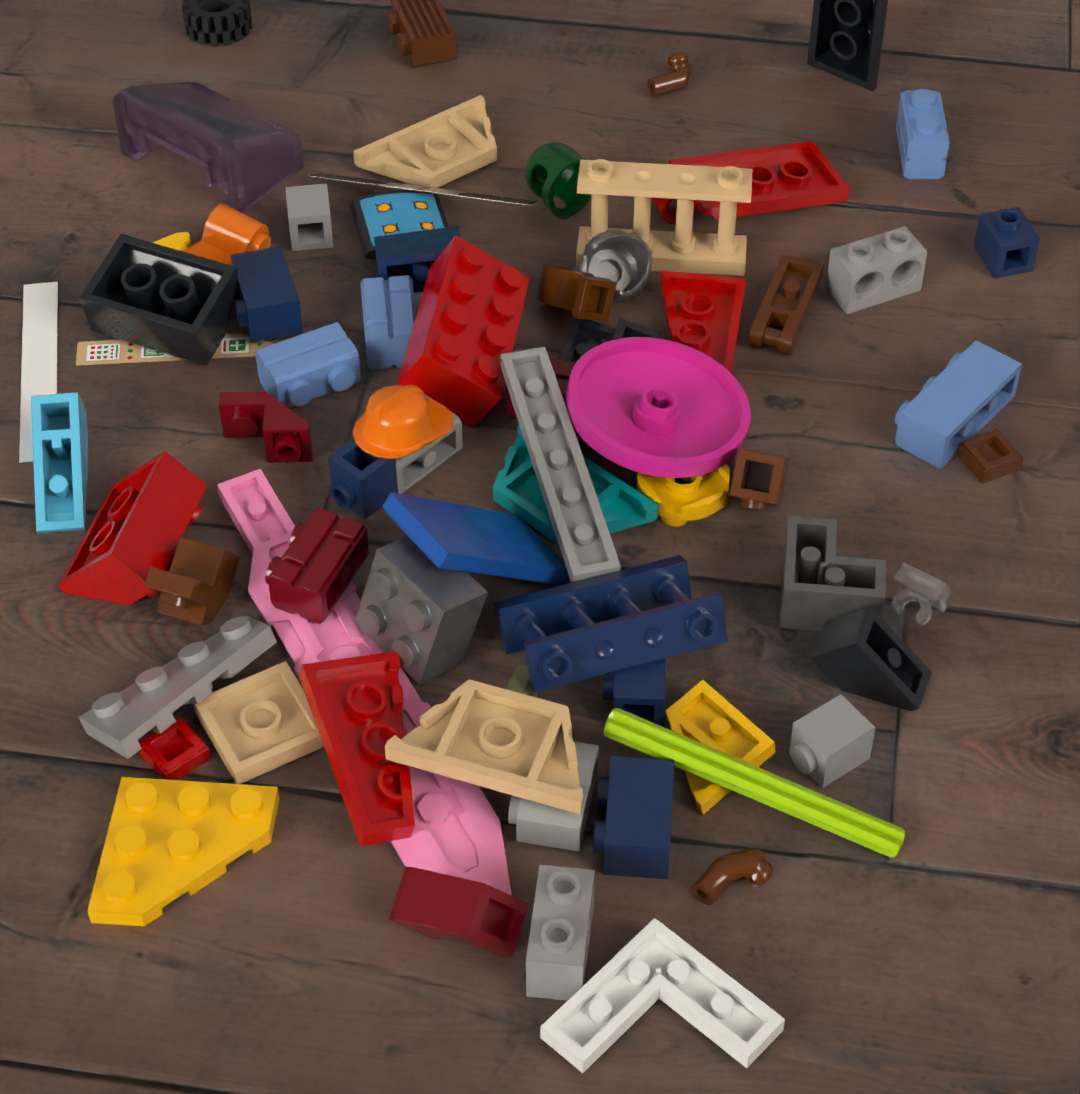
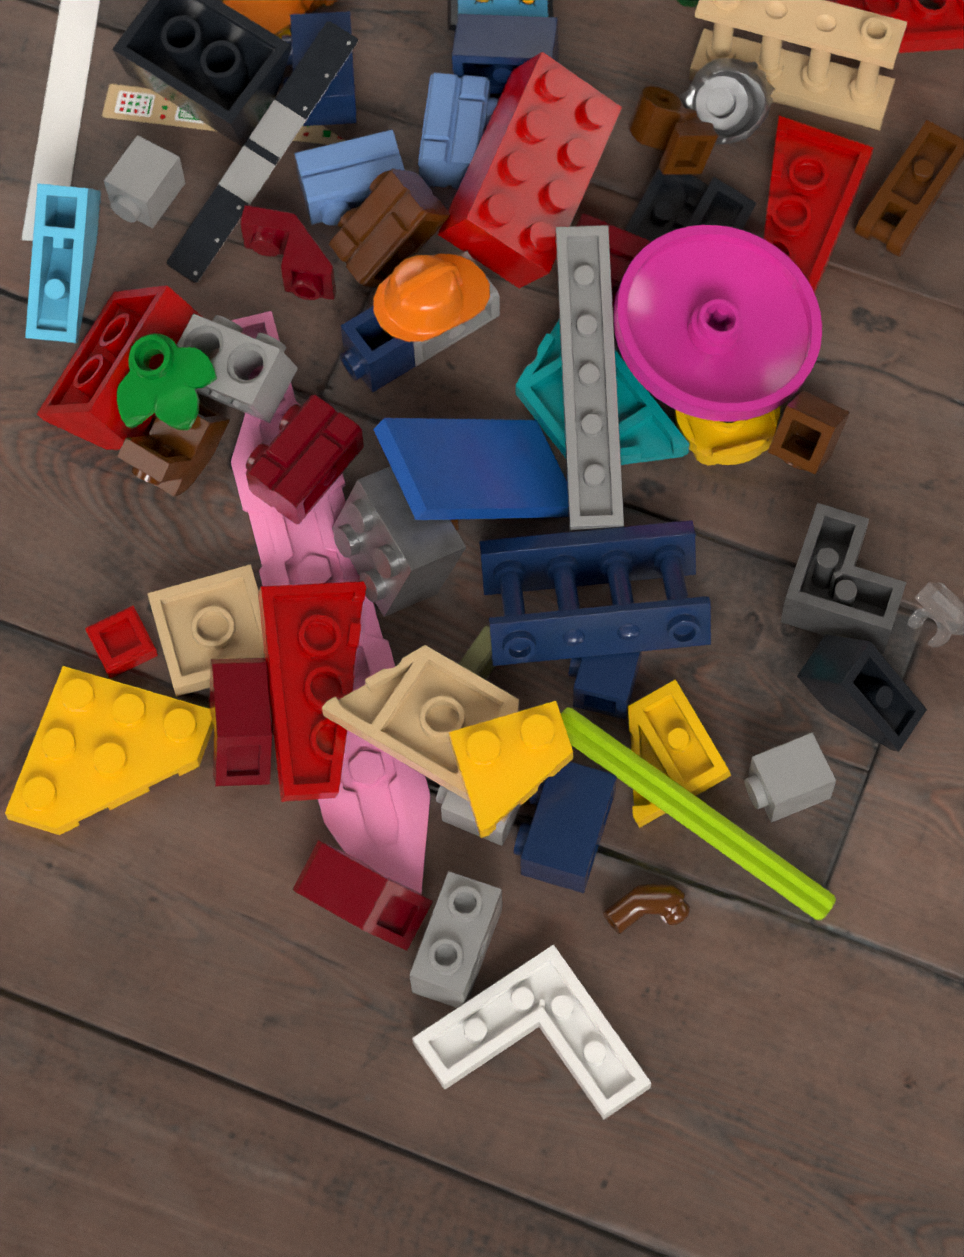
camera: 15 degrees right, 20 degrees up
(124, 397) = (144, 182): none -> light grey brick
(157, 692) = (142, 566): light grey wing -> none
(179, 527) = (165, 390): none -> green plate
(226, 354) = (262, 151): none -> black sticker
(235, 507) = (236, 360): none -> light grey brick
(308, 786) = (240, 721): none -> dark red slope
(347, 384) = (388, 226): none -> reddish brown brick
(573, 752) = (509, 759): none -> yellow wing

